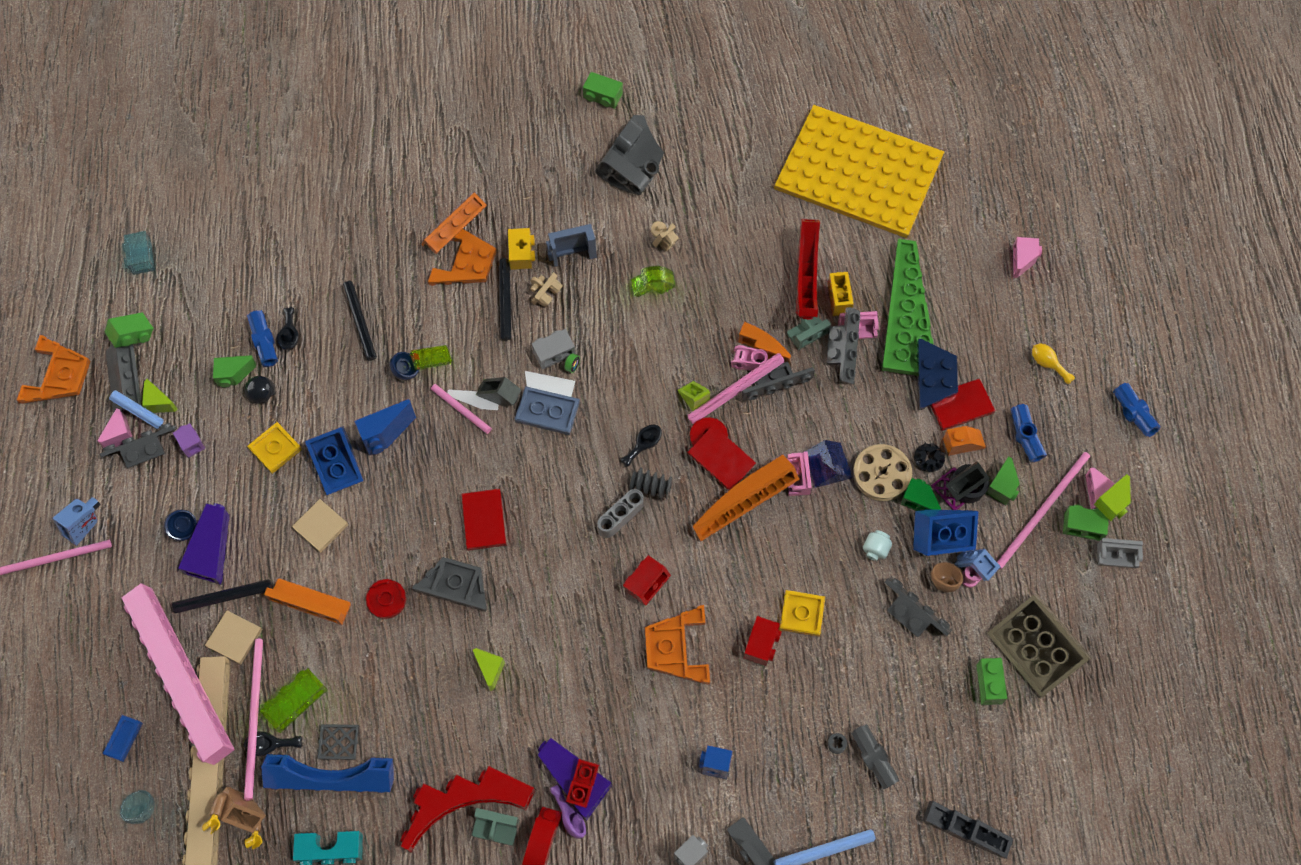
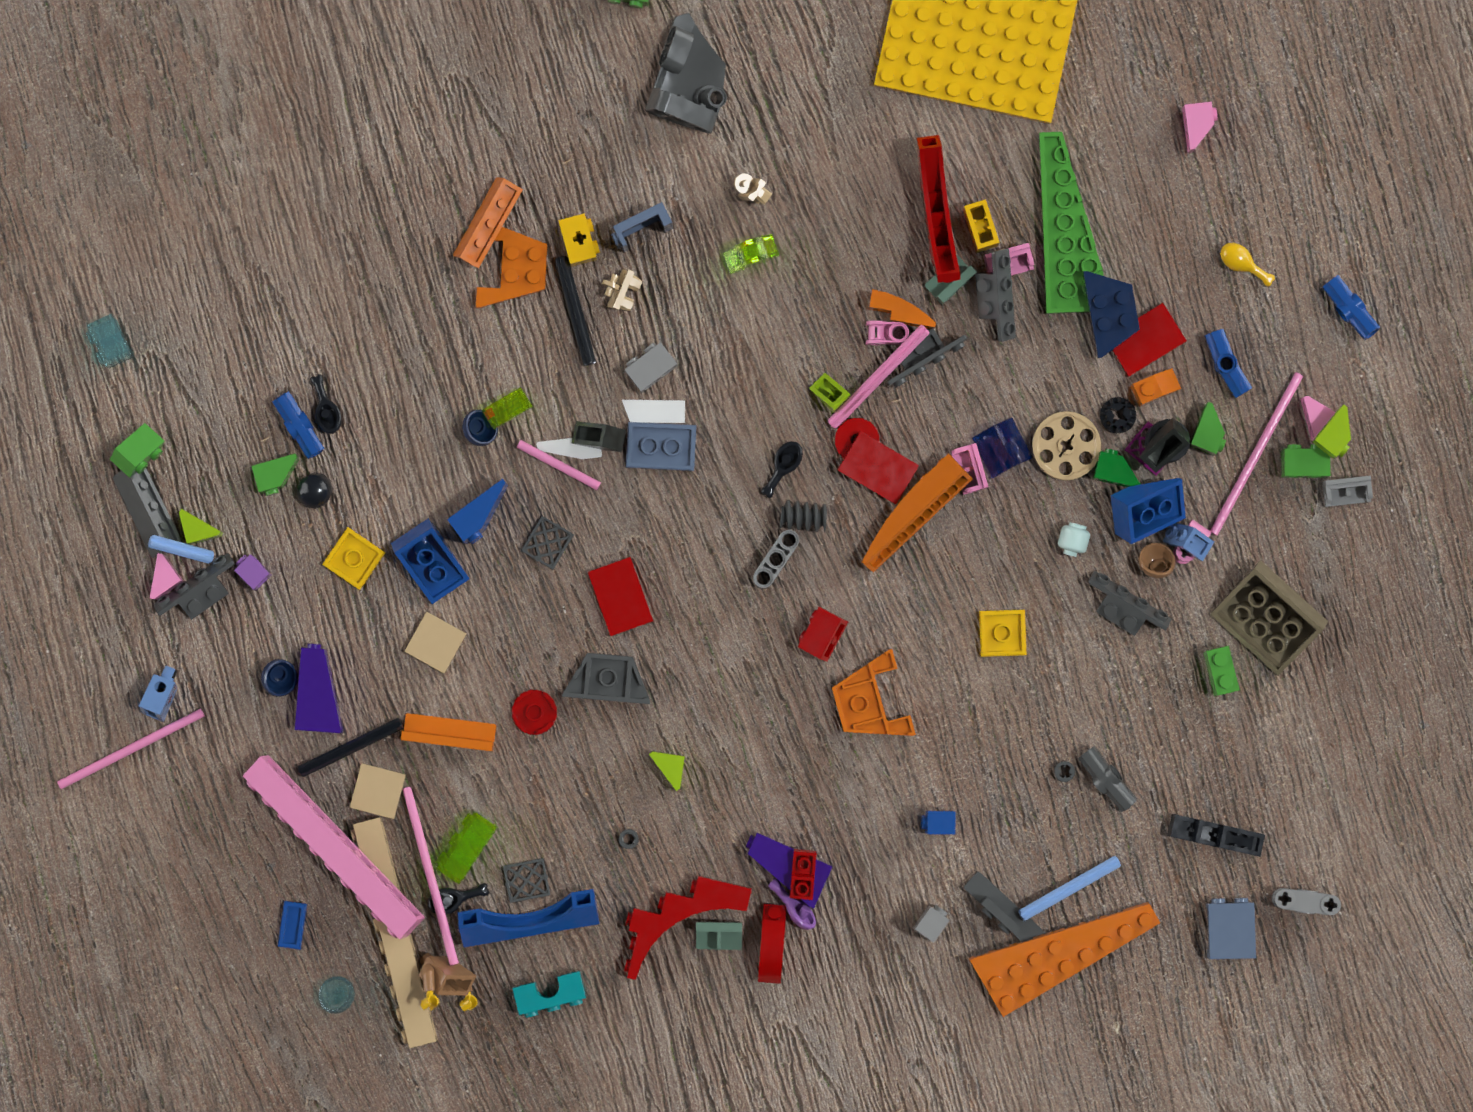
camera: 10 degrees left, 20 degrees up
(63, 376) = (75, 518): orange wing -> none
(359, 320) = (406, 375): black axle -> none
(427, 456) = (556, 527): none -> dark grey window
(437, 717) = (629, 846): none -> dark grey axle
(572, 363) = (676, 381): bright green tile -> none
(762, 640) = (964, 677): red brick -> none

